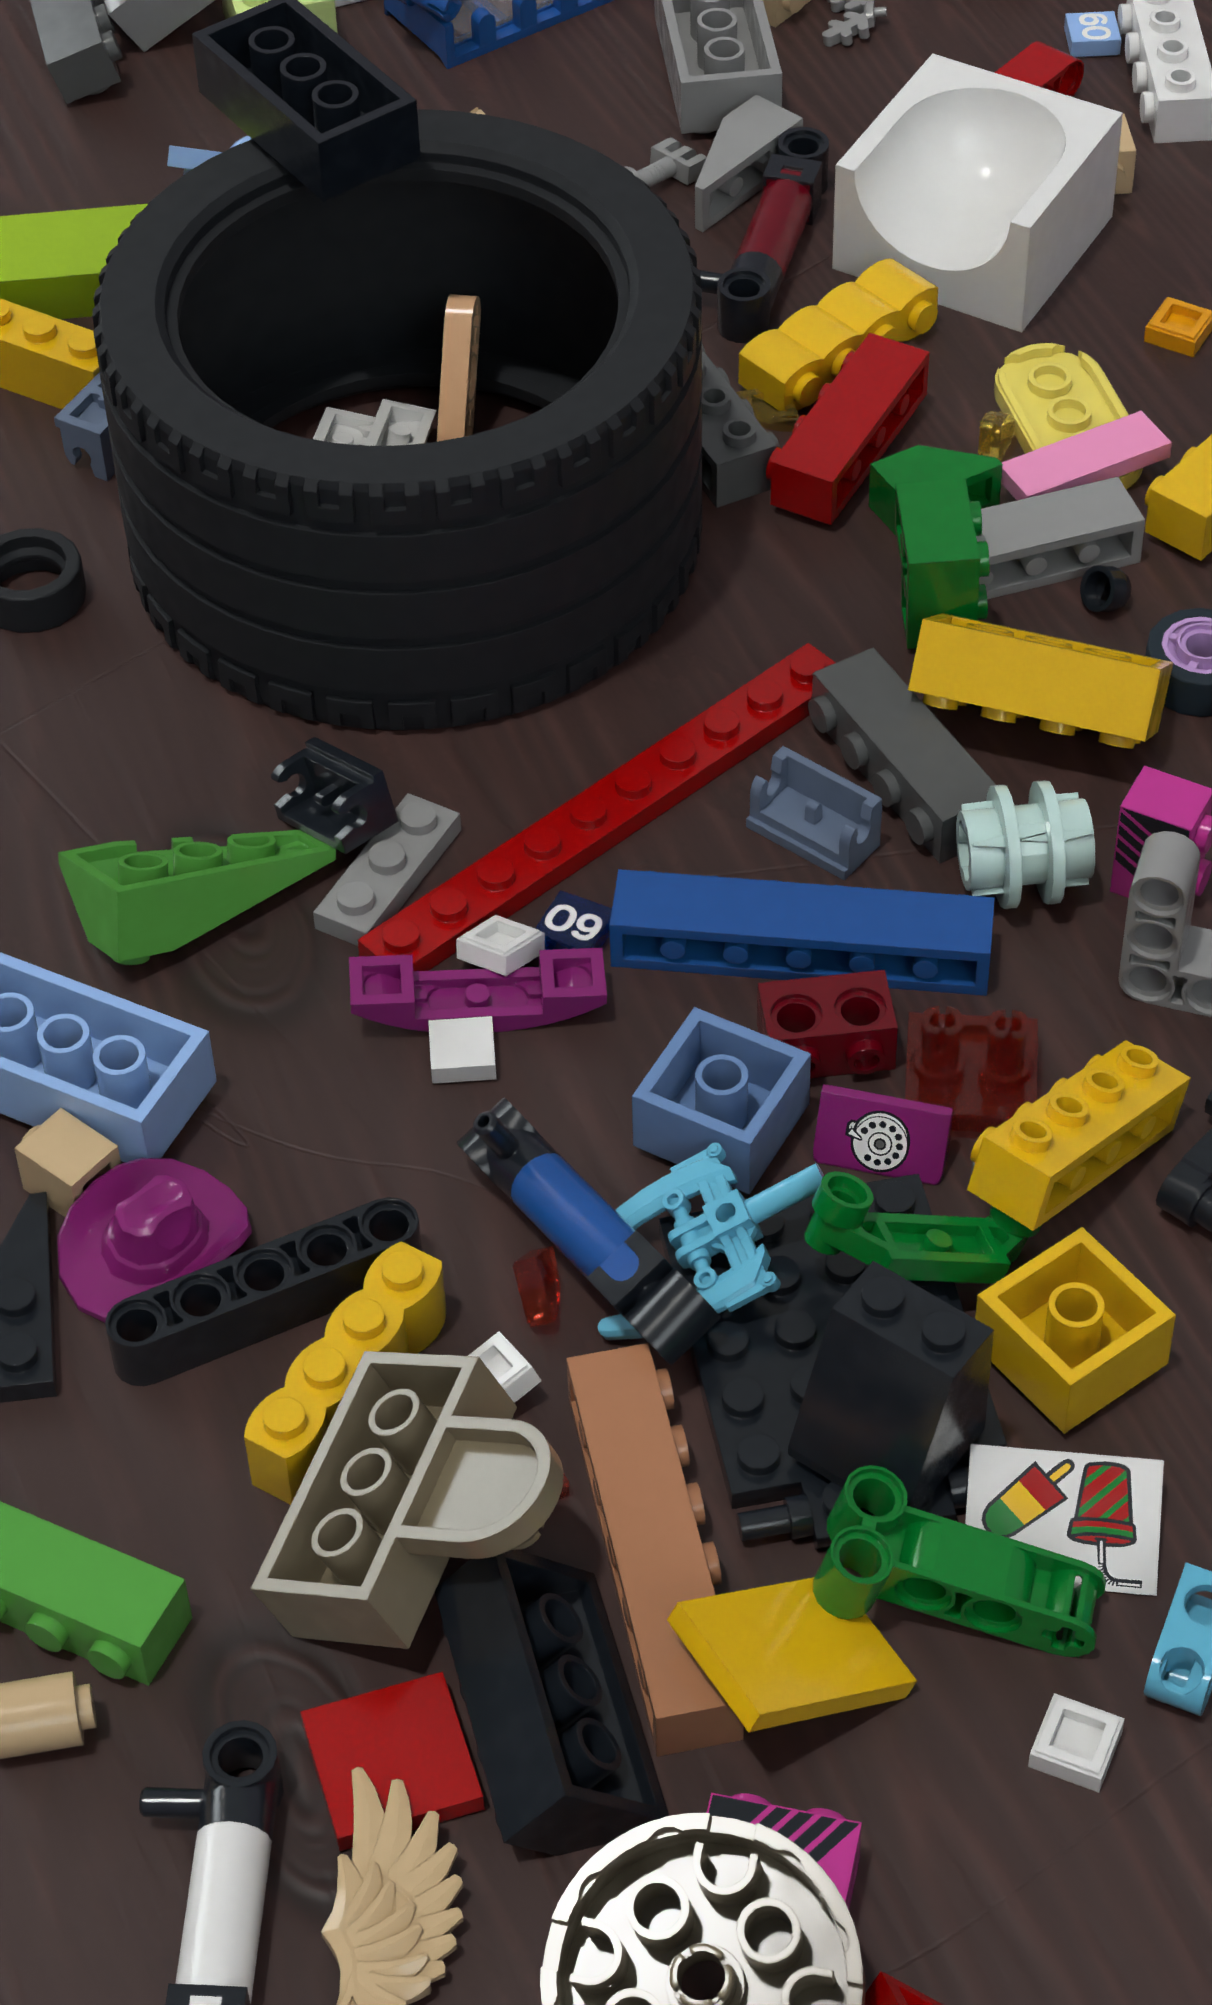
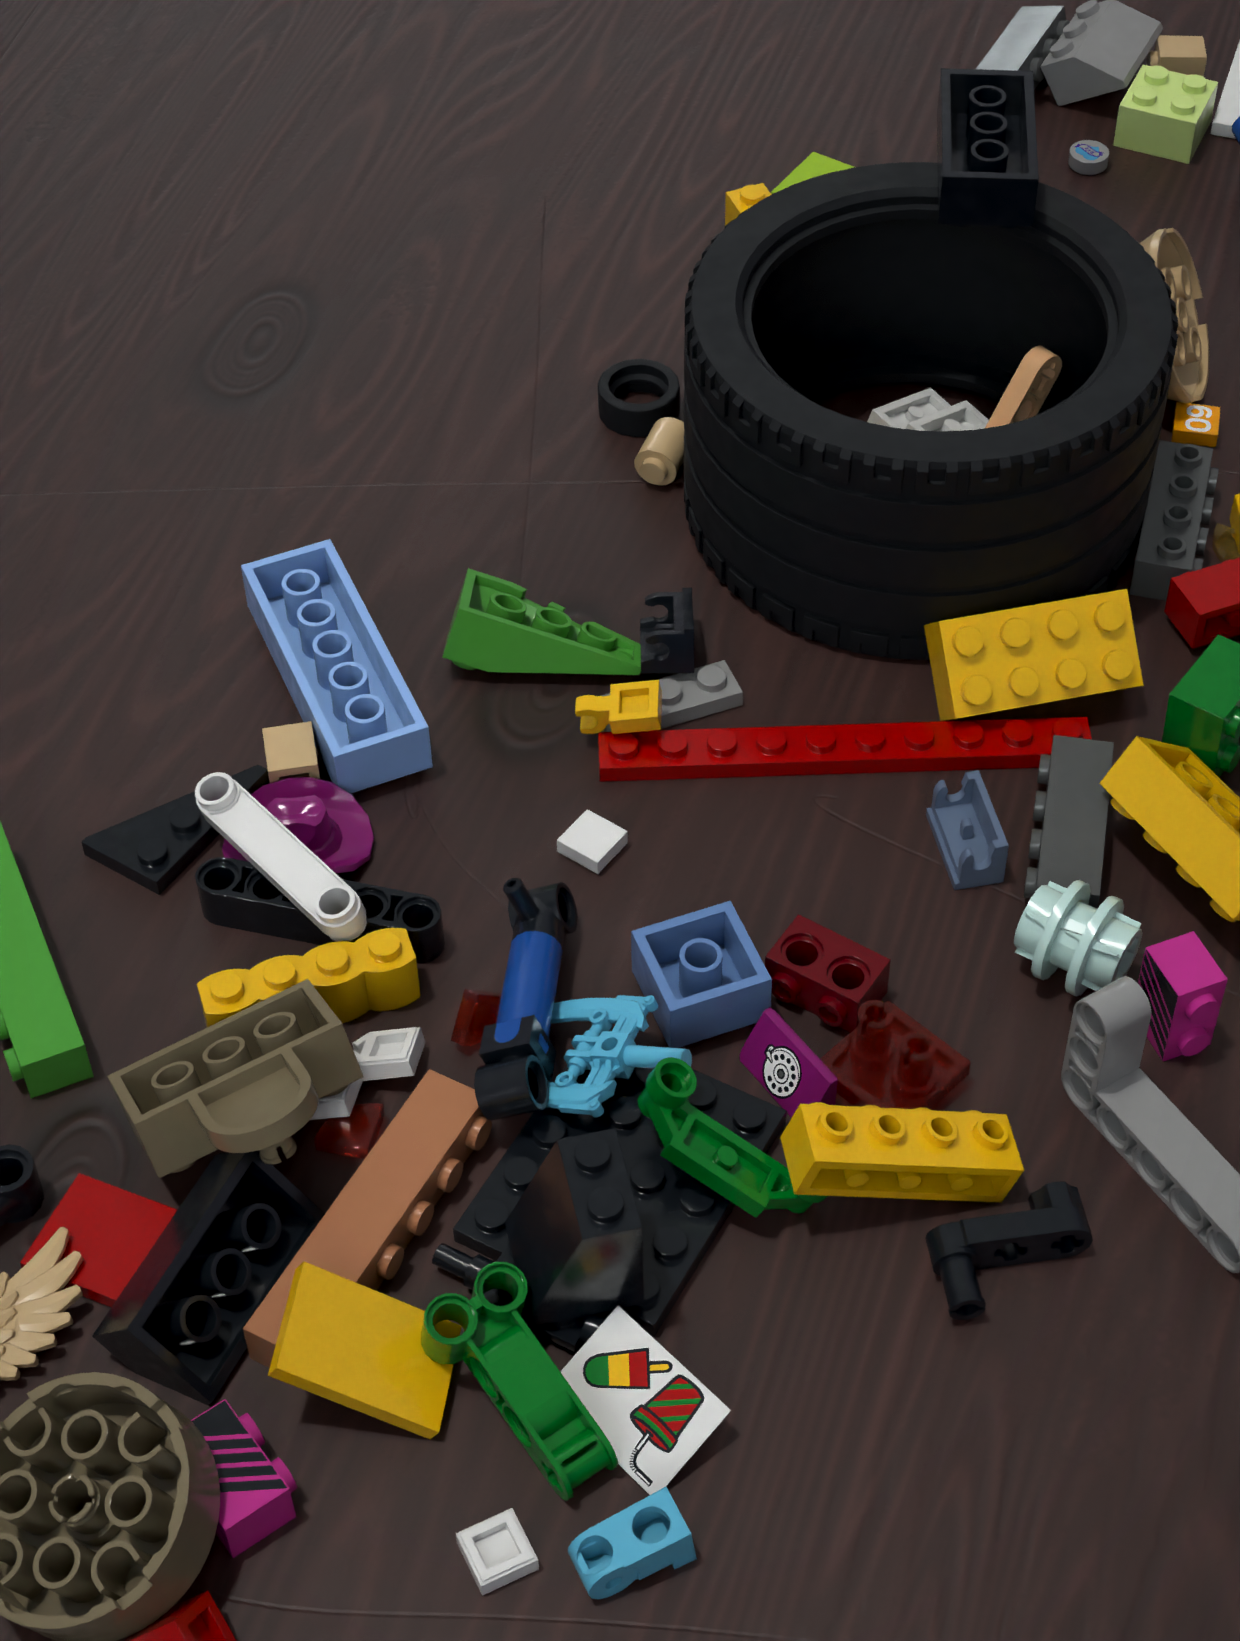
camera: 40 degrees right, 0 degrees up
(121, 619) = (662, 452): none -> tan brick
(192, 1256) = (281, 857): none -> white piece
(377, 890) = (626, 709): none -> yellow plate
(500, 945) = (679, 790): white tile -> none
(559, 989) = (652, 827): magenta slope -> none
(575, 923) = (741, 809): clear blue tile -> none
(719, 609) = (1033, 654): none -> yellow brick
(800, 930) = (880, 905): blue brick -> none
(1075, 1329) = (765, 1281): yellow brick -> none

